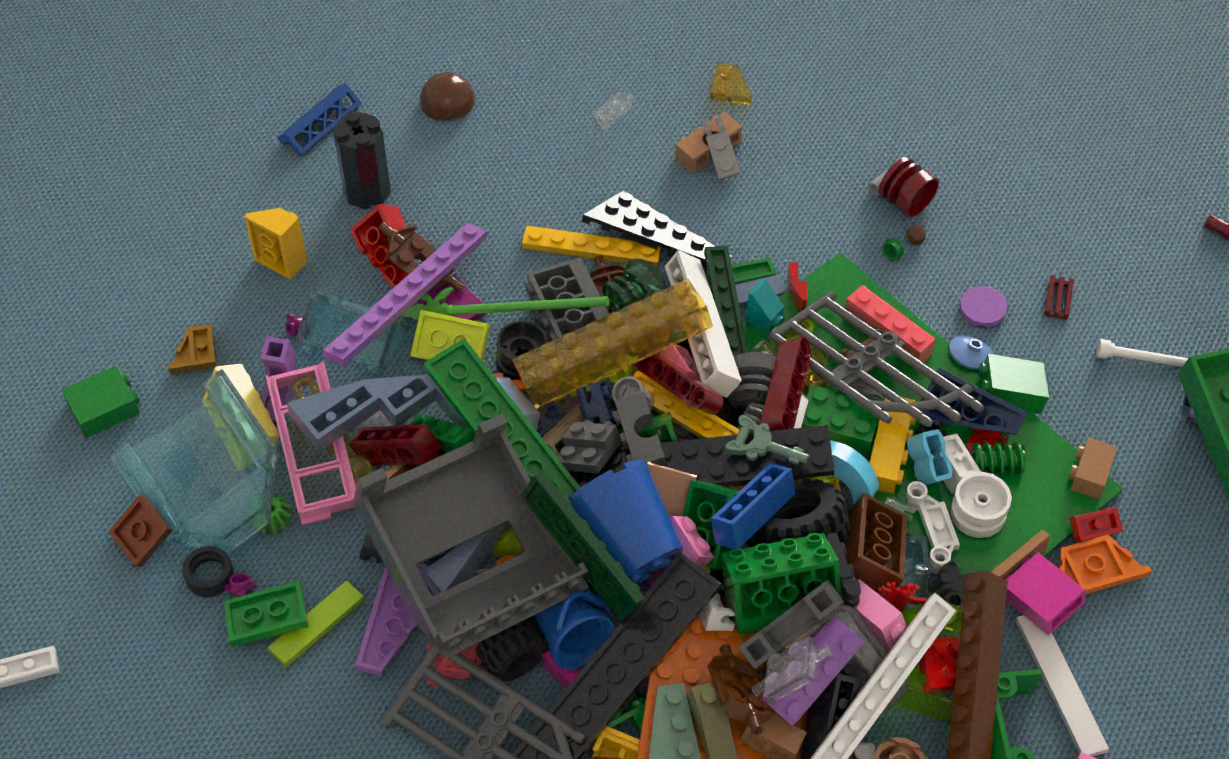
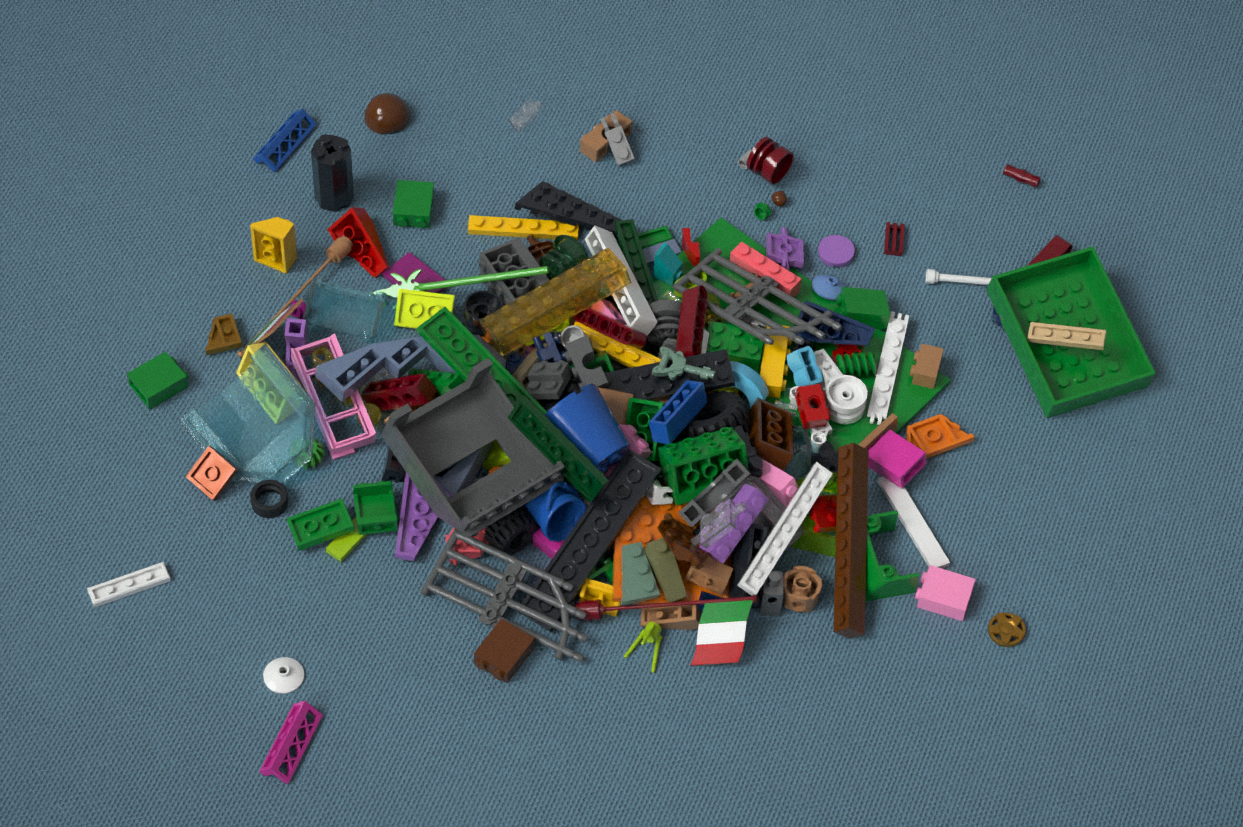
camera: 10 degrees left, 0 degrees up
(239, 584) = (295, 506): magenta plate -> none
(340, 598) = (375, 508): none -> green panel
(352, 259) = (335, 253): none -> medium nougat flag
(404, 295) = (386, 276): medium lavender plate -> none
(406, 246) = (379, 239): reddish brown plate -> none
(459, 203) = (413, 204): none -> green brick
(730, 85) = (617, 86): clear yellow wing -> none
(901, 596) = (792, 467): red piece -> none
(917, 299) = (785, 249): none -> medium lavender plate
(931, 524) = (811, 416): none -> red brick
(1039, 467) = (887, 368): none -> white hinge
(1096, 524) = (931, 407): red plate -> none

